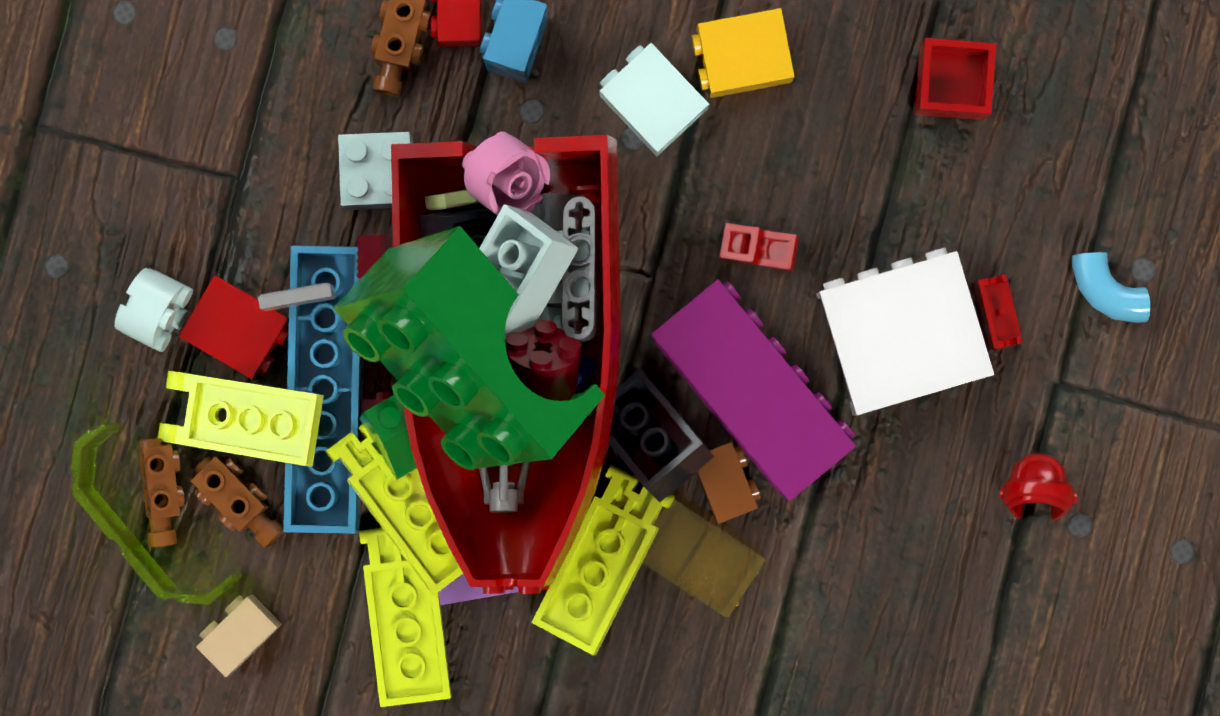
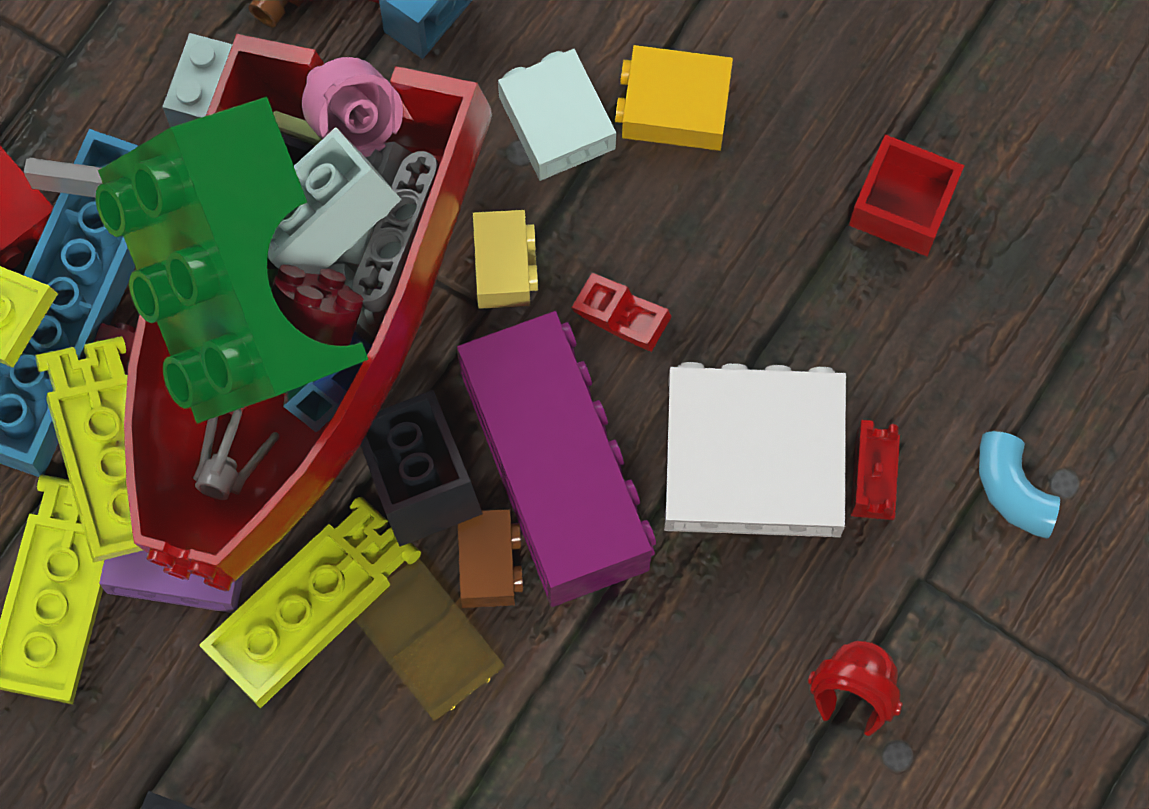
camera: 20 degrees right, 15 degrees down
(390, 434) = (111, 347): green slope -> none
(658, 245) = (504, 259): none -> light yellow brick

